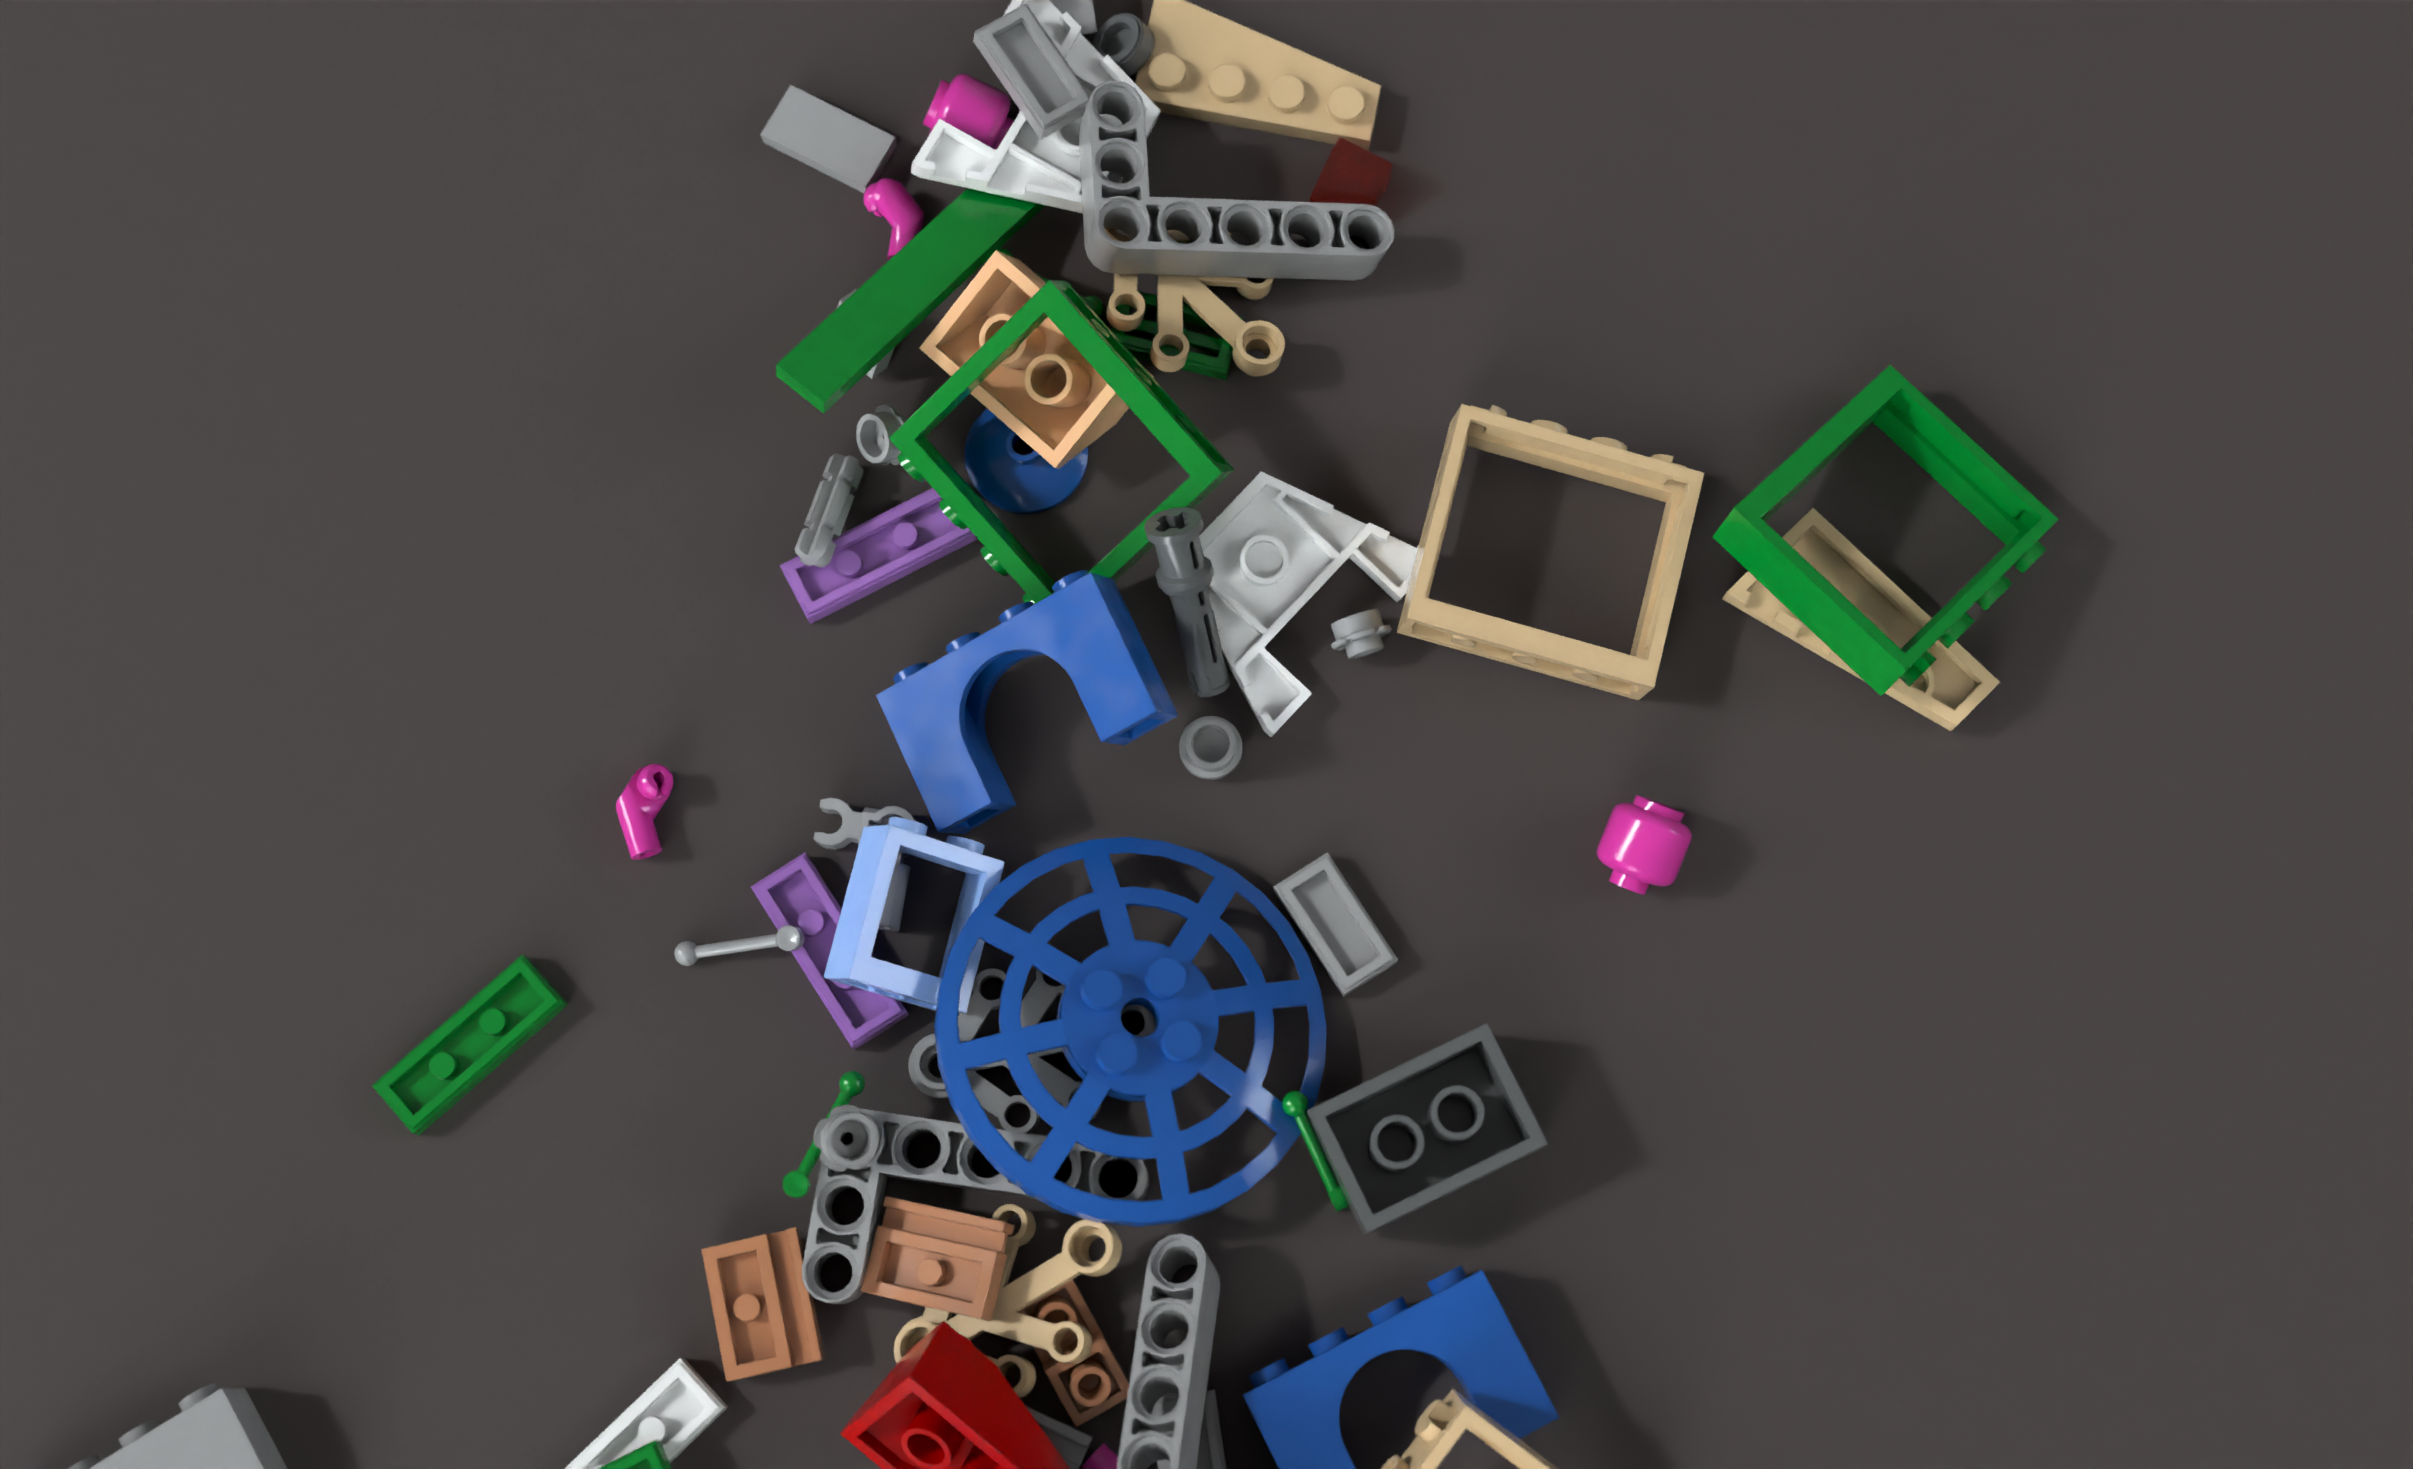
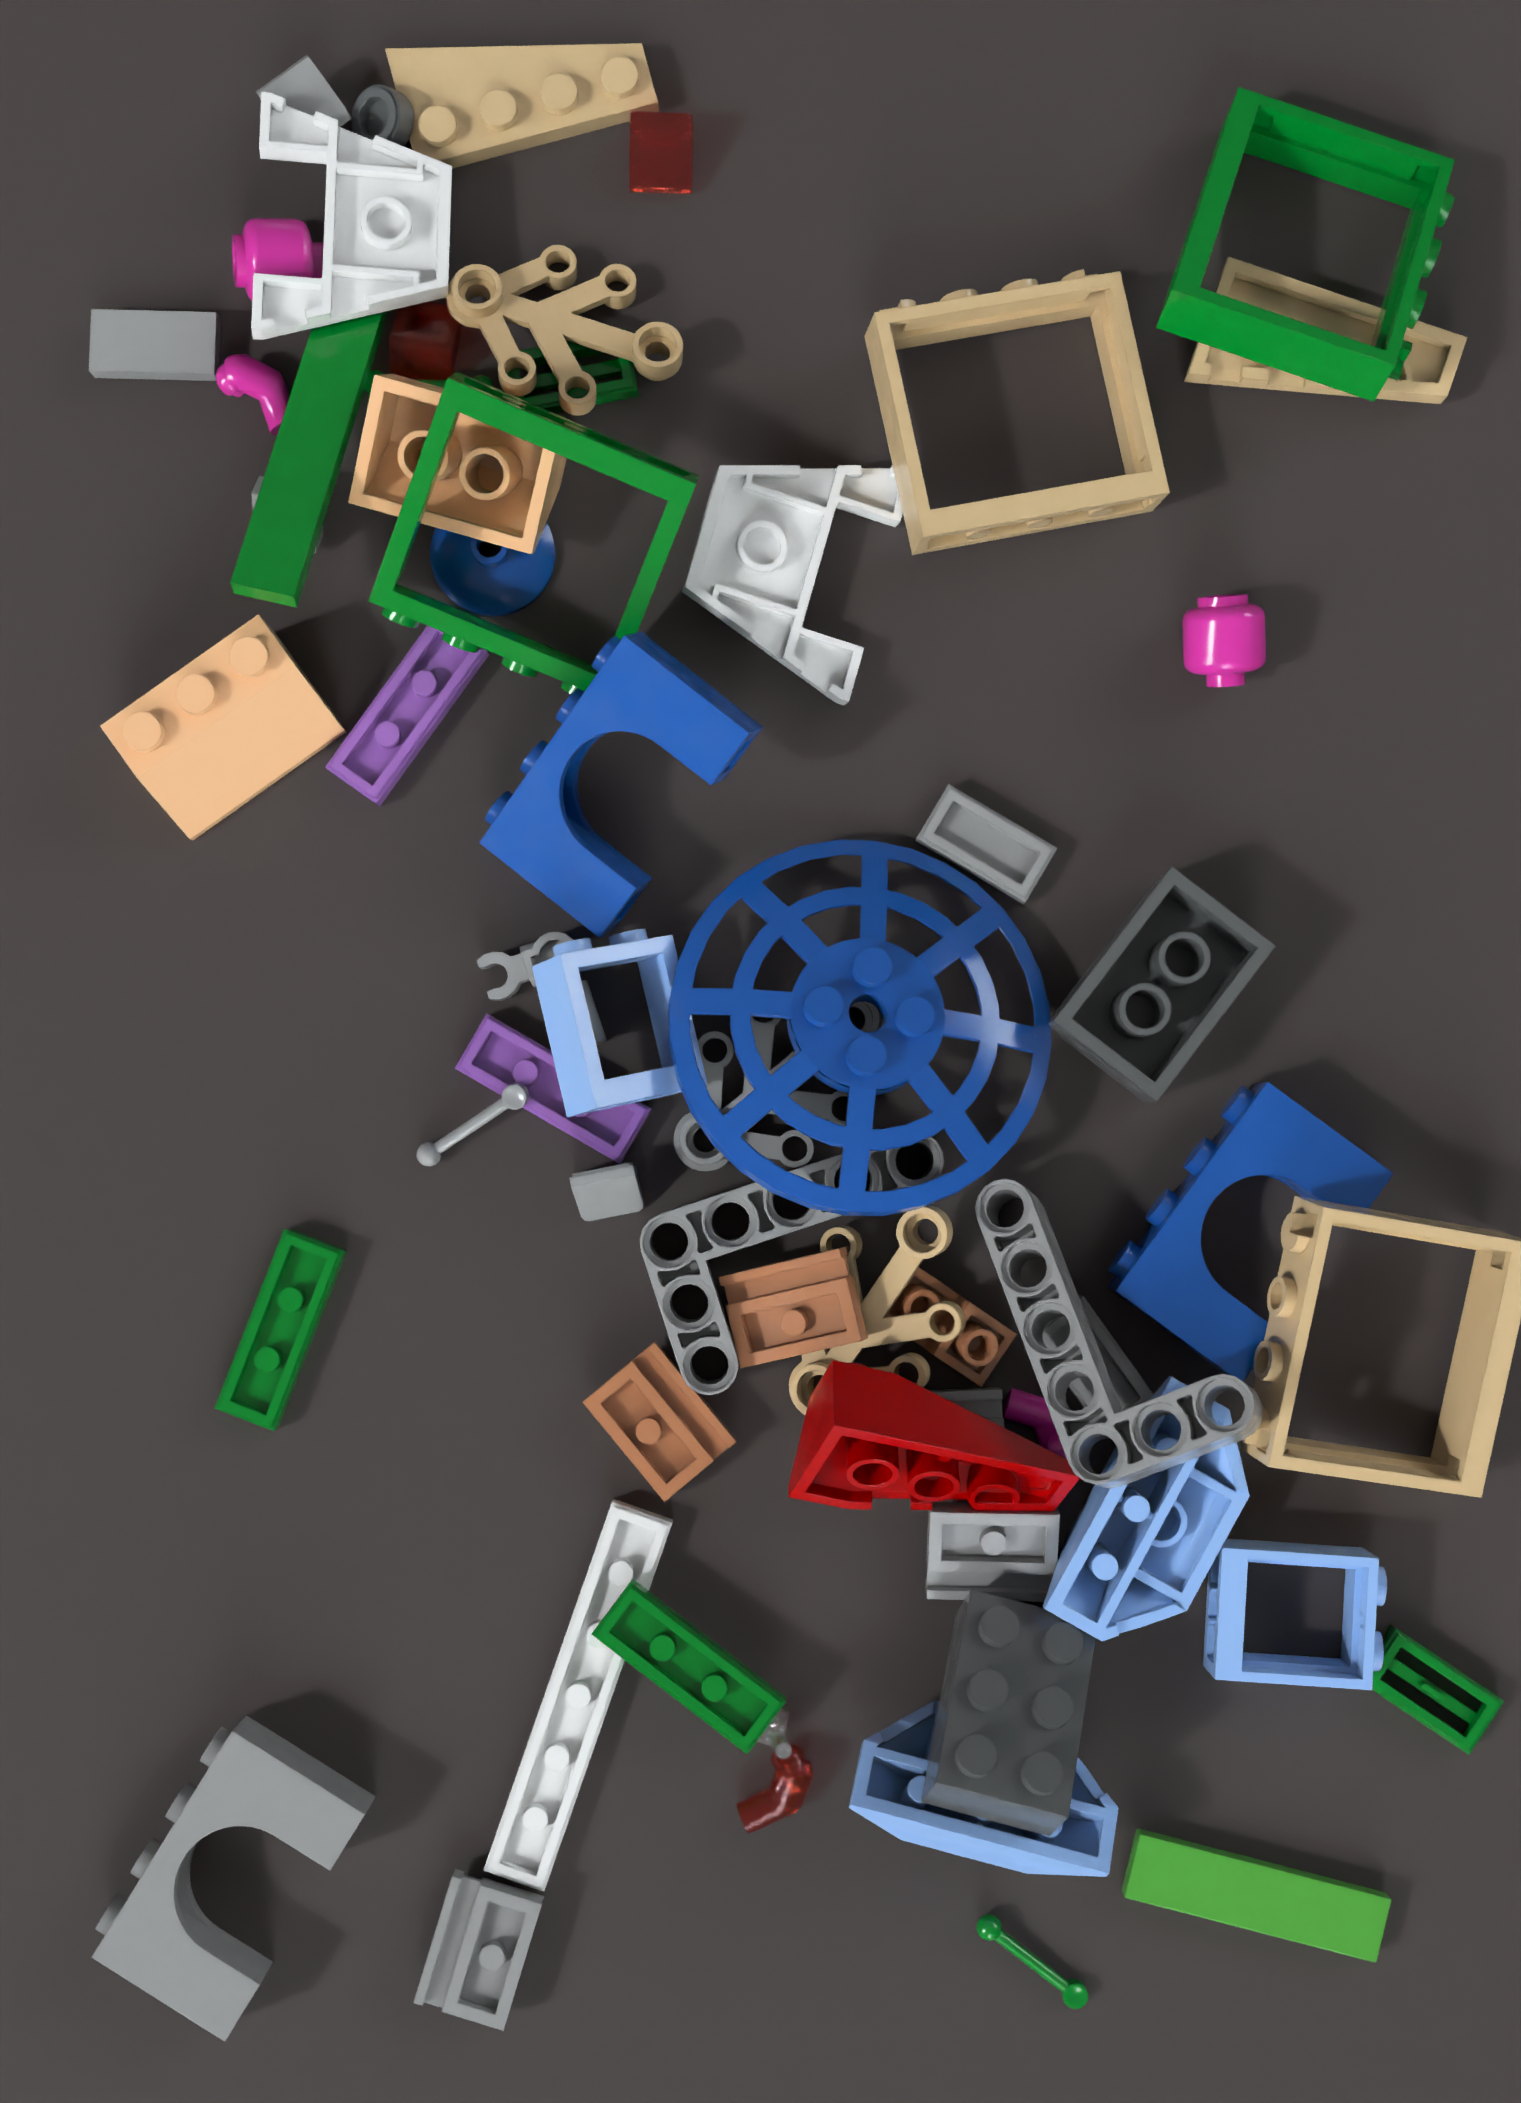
camera: 30 degrees left, 10 degrees up
(639, 807) = (316, 1046): dark pink arm -> none
(708, 487) = (223, 728): none -> light nougat slope
(797, 1183) = (640, 1306): green hinge -> none
(822, 1062) = (607, 1191): none -> light grey slope
(829, 510) = (344, 694): light grey axle -> none
(864, 1138) = (680, 1241): light grey plate -> none
(874, 434) = (350, 602): light grey plate -> none
(1032, 71) = (316, 184): light grey tile -> none
(1057, 246) = (424, 342): none -> clear red slope
(1185, 579) = (707, 598): dark grey pin -> none
(1206, 220) = (549, 253): light grey beam -> none
(1210, 747) = (798, 741): light grey plate -> none
(1295, 1105) = (1038, 1021): green hinge -> none
(1360, 633) = (879, 572): light grey plate -> none

